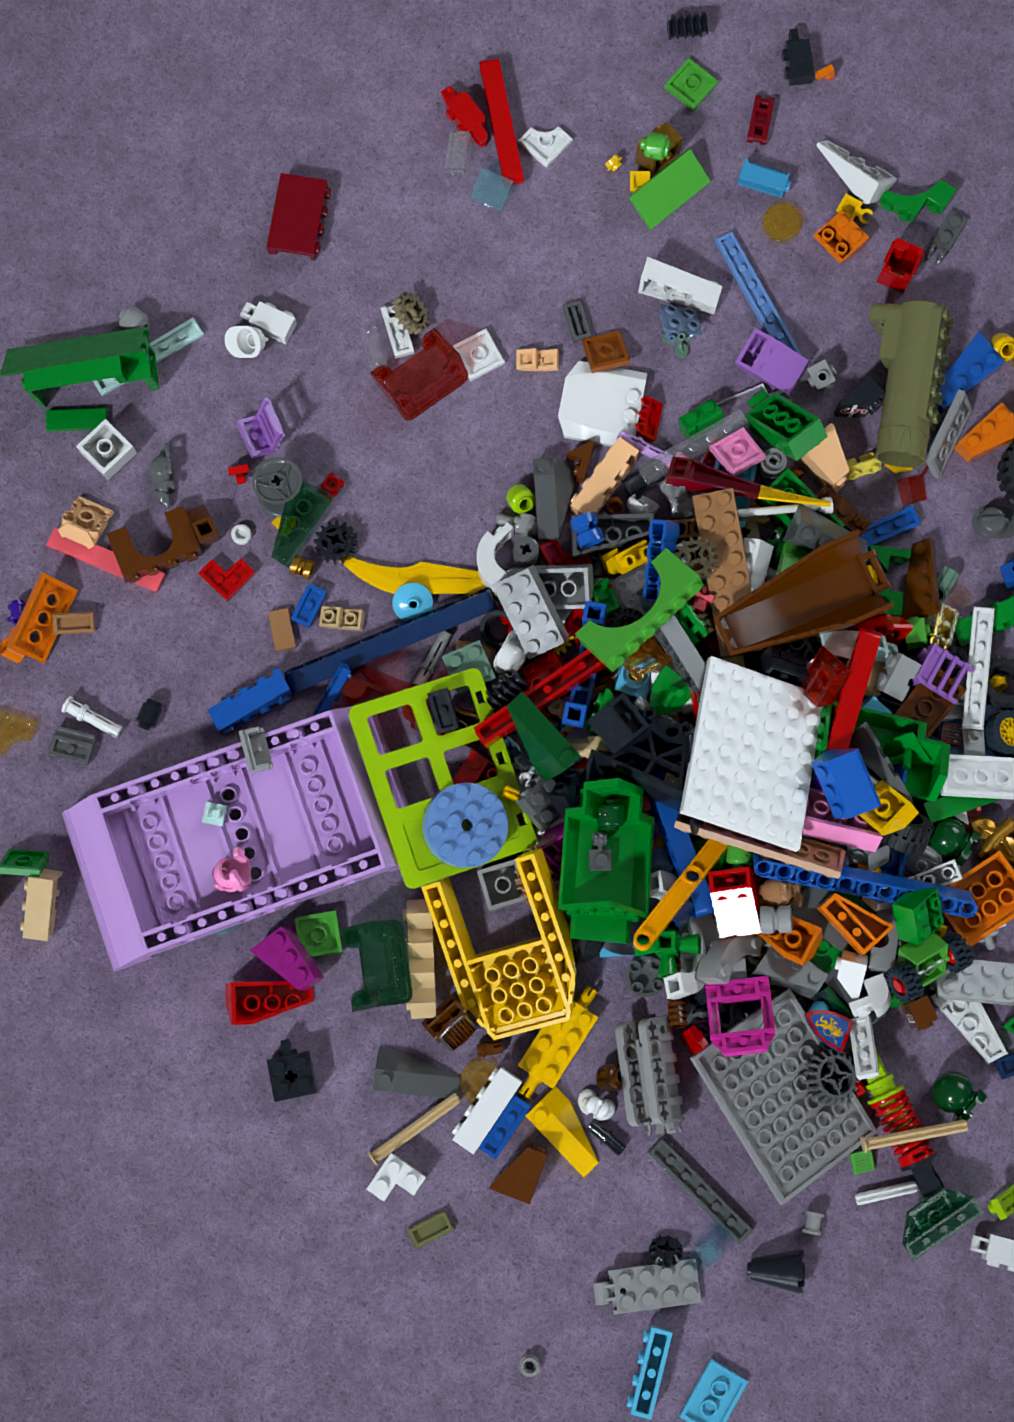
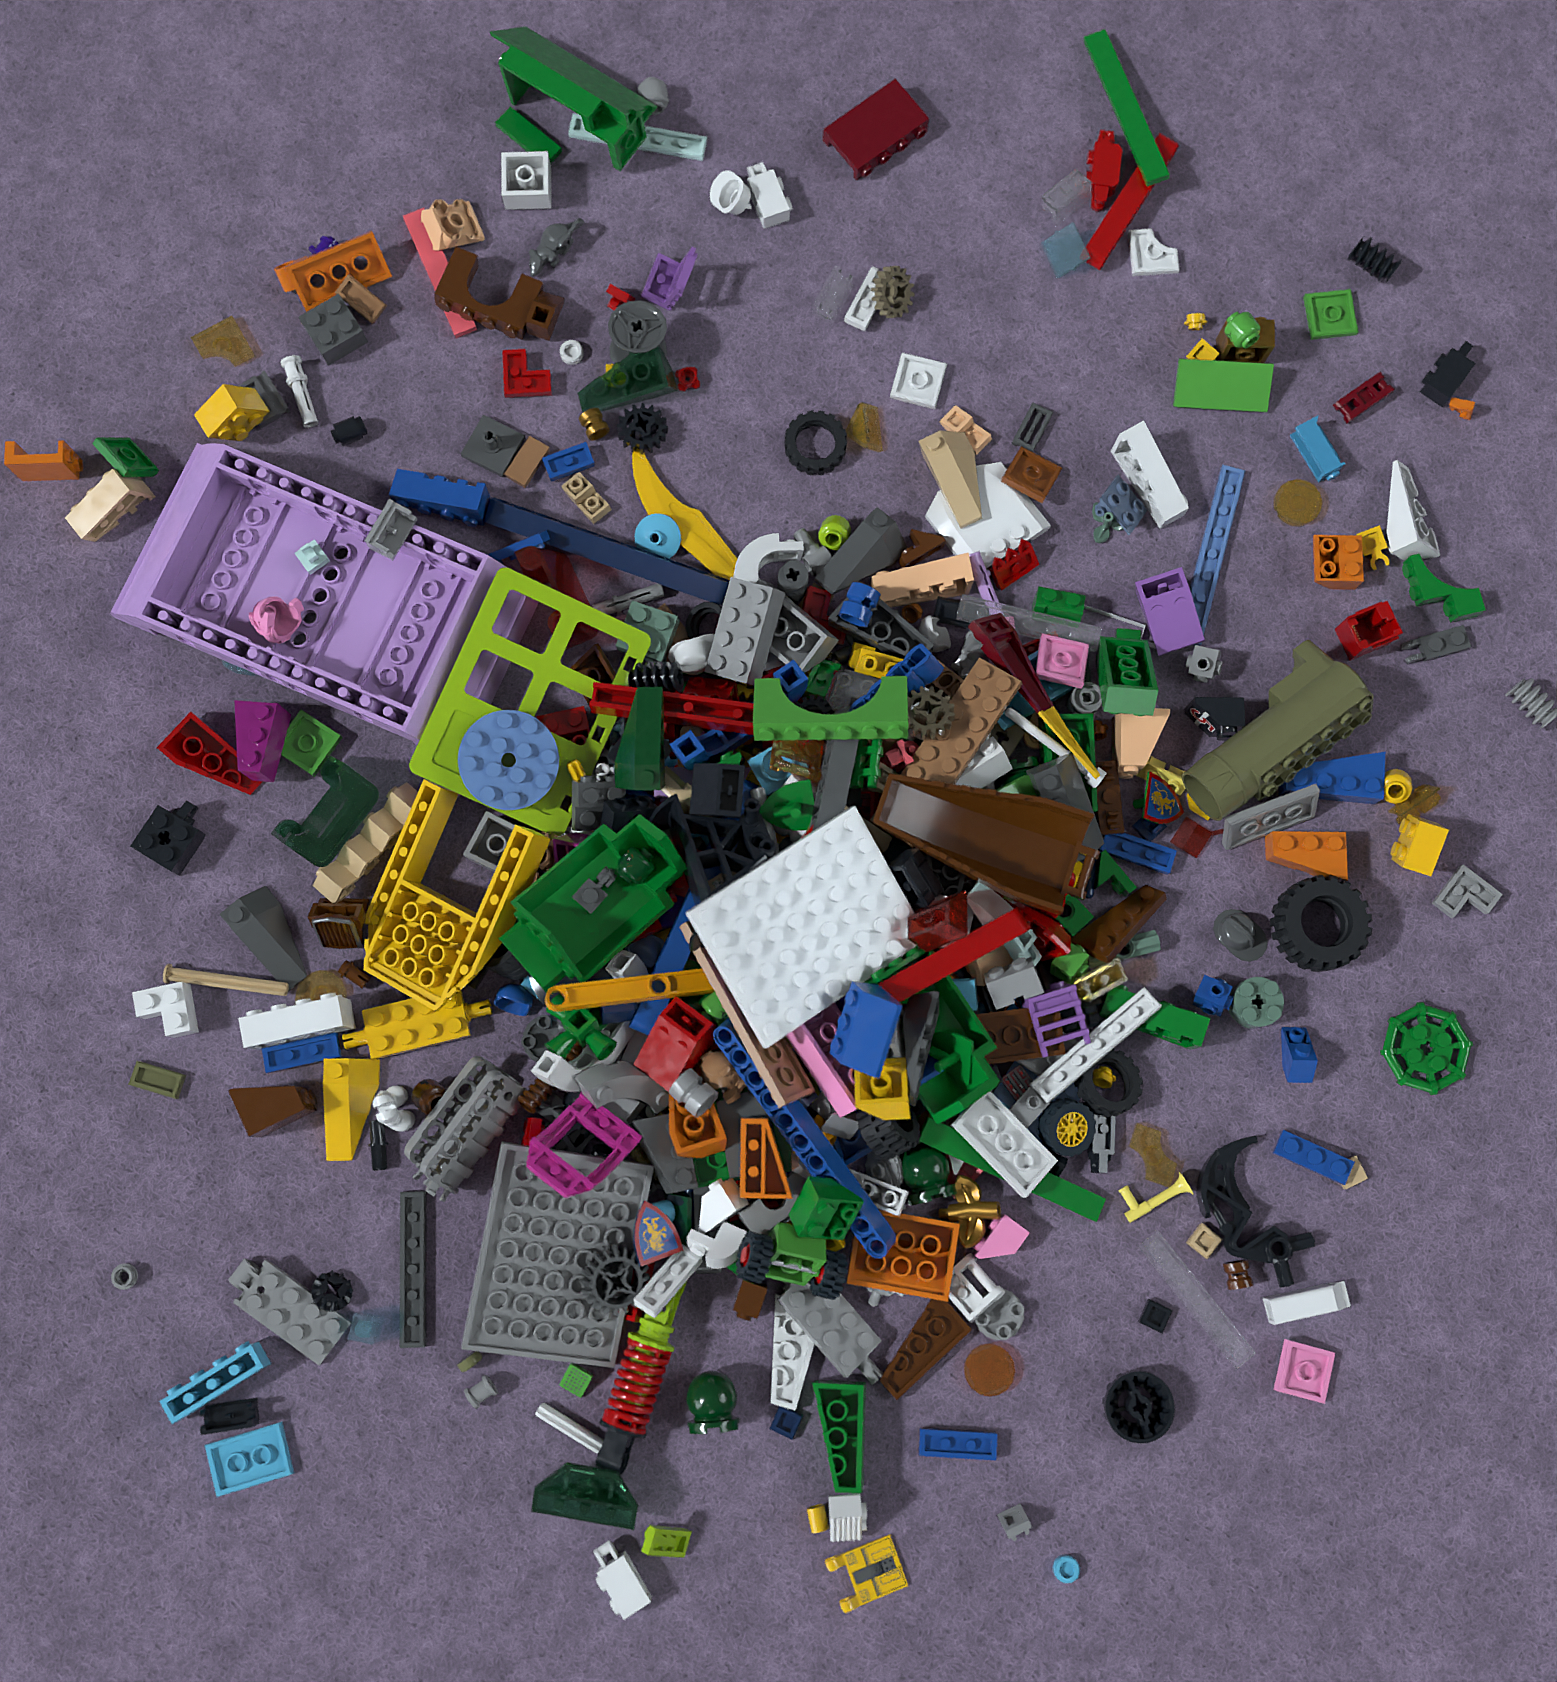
camera: 40 degrees right, 0 degrees up
(67, 771) = (231, 412): none -> yellow brick
(75, 658) = (333, 329): none -> dark grey brick
(250, 640) = (492, 446): none -> dark grey tile
(422, 378) = (850, 358): clear red windscreen -> none
(443, 63) = (1126, 108): none -> green tile
(443, 710) = (584, 644): black plate -> none
(452, 432) = (822, 420): none -> black tyre
(473, 415) = (865, 427): none -> clear yellow slope
(555, 391) = (954, 469): none -> tan wedge
(604, 970) = (514, 999): none -> blue hair
(678, 1384) = (230, 1416): none -> black hinge
(780, 1270) = (411, 1405): black cone -> none
(788, 1211) = (469, 1361): none -> olive tile
(875, 485) = (1160, 801): none -> shield
(881, 505) = (1147, 829): none -> dark blue tile
(913, 1135) = (636, 1400): tan axle -> none

